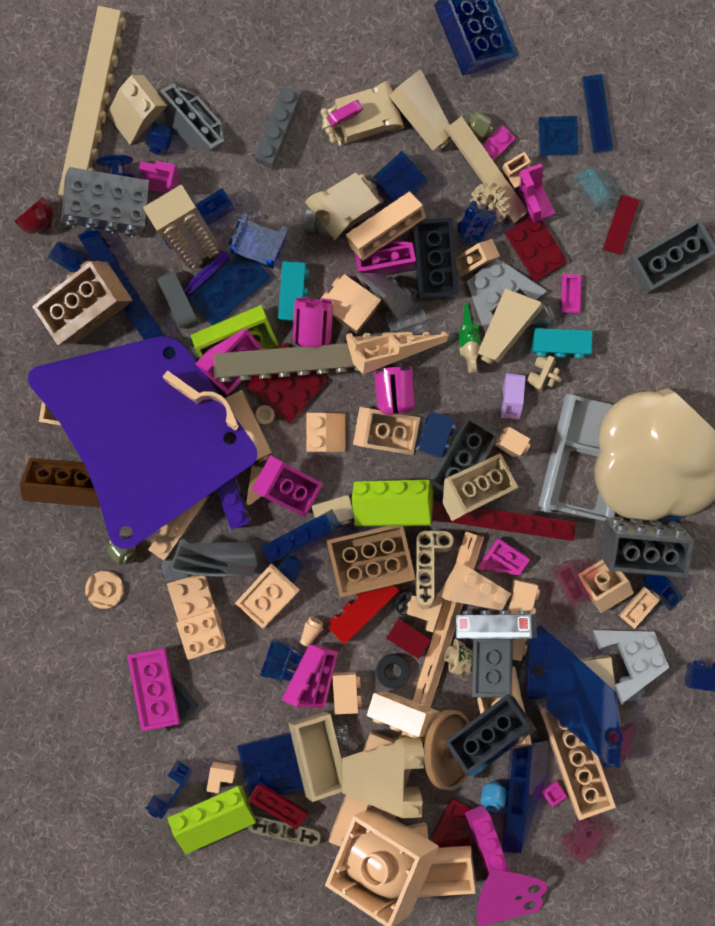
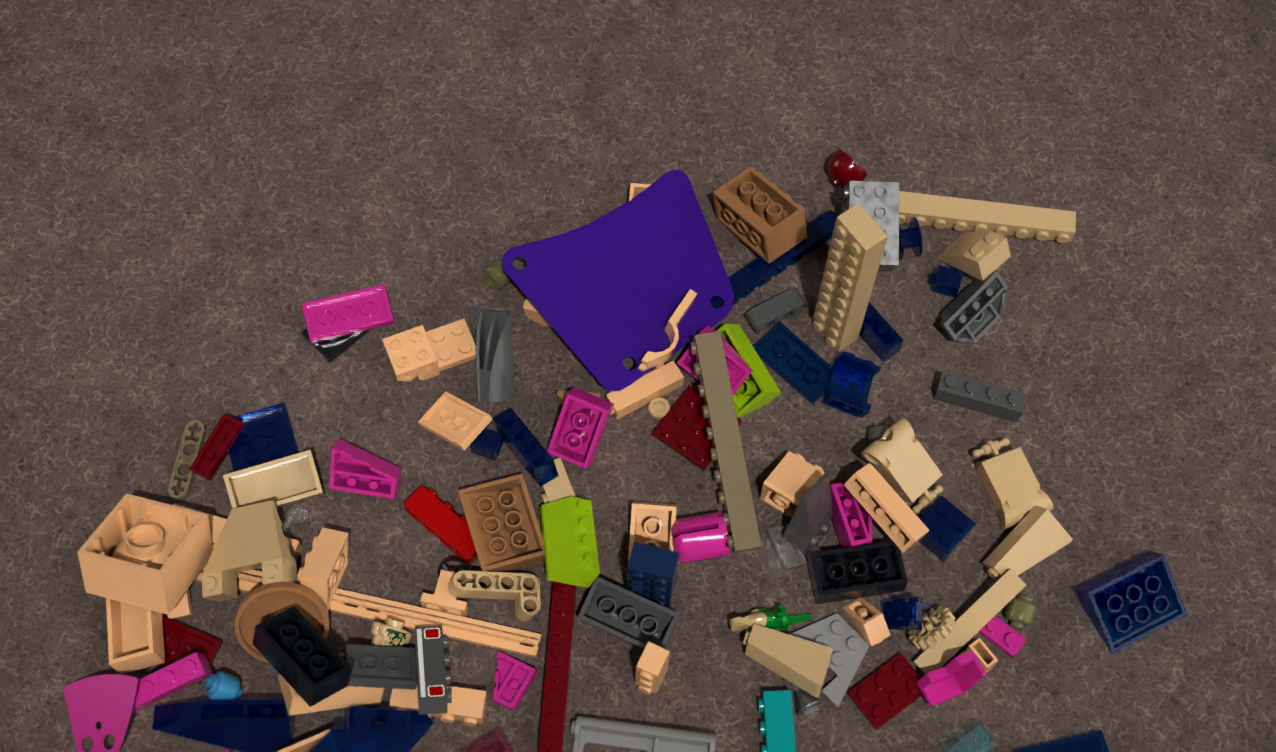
camera: 85 degrees right, 25 degrees down
(58, 483) = (566, 203): reddish brown slope -> none
(66, 257) = (809, 200): clear blue slope -> none
(109, 586) = (454, 262): light nougat tile -> none
(161, 176) = (905, 285): dark pink panel -> none
(175, 530) = (533, 328): light nougat brick -> none
(180, 774) = (251, 346): clear blue panel -> none
(206, 273) = (809, 338): dark purple axle -> none
(212, 820) = (202, 381): lime slope -> none
(220, 773) = (252, 386): light nougat piece -> none
(233, 504) = (561, 377): dark purple brick -> none
(278, 659) = (382, 438): clear blue hips -> none
(292, 287) = (799, 424): teal brick -> none
(311, 630) = (418, 472): light nougat cone -> none
(312, 322) = (767, 438): dark pink cylinder -> none
(326, 432) = (645, 469): light nougat slope -> none
(345, 113) = (1005, 455): dark pink beam -> none
(345, 692) = (346, 512): light nougat brick -> none
(378, 351) = (742, 509): light nougat wedge -> none
(396, 682) = (362, 556): black tyre -> none
(408, 638) = (411, 576): dark red panel -> none
(474, 589) = (473, 642): light nougat wedge -> none
(477, 486) = (596, 631): tan slope -> none
(513, 396) = (707, 674): lavender slope -> none
(547, 365) = (736, 712): tan hips -> none
(558, 136) = (1025, 707): clear blue tile -> none
(571, 293) = (838, 738): dark pink tile -> none

